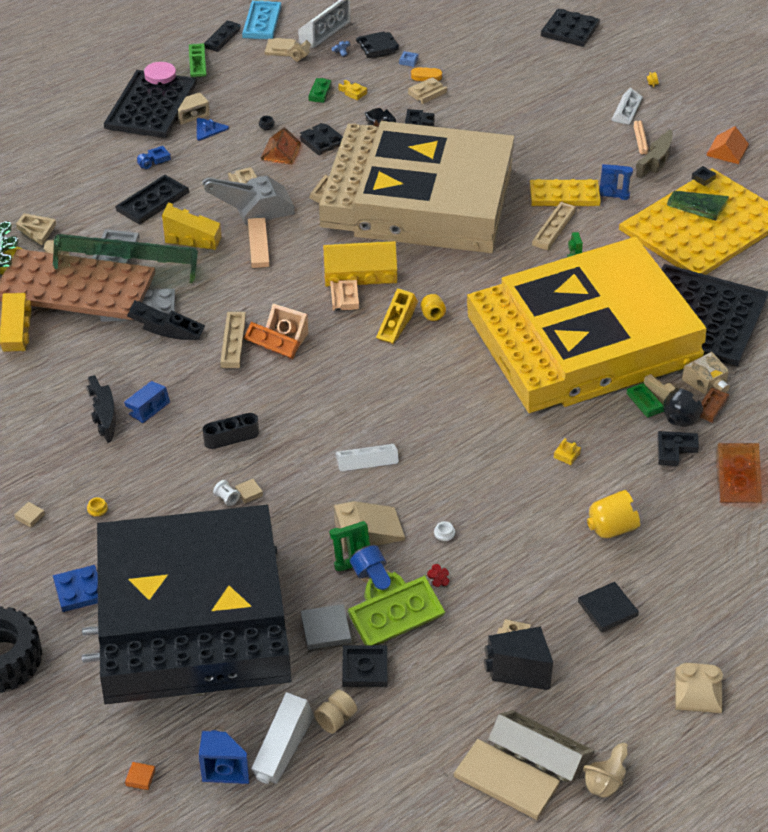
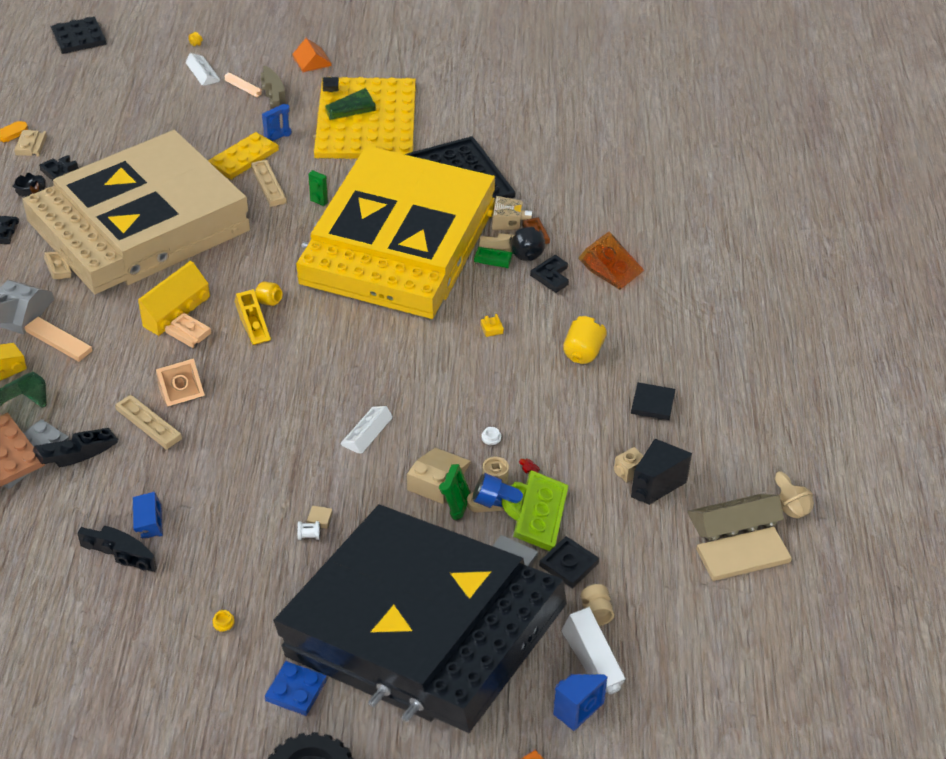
camera: 50 degrees left, 0 degrees up
(29, 514) = (175, 671): tan tile -> none
(230, 430) = (246, 486): black beam -> none
(272, 340) = (180, 400): orange tile -> none
(400, 558) = (497, 467): none -> tan wheel
(698, 687) = (763, 407): tan slope -> none

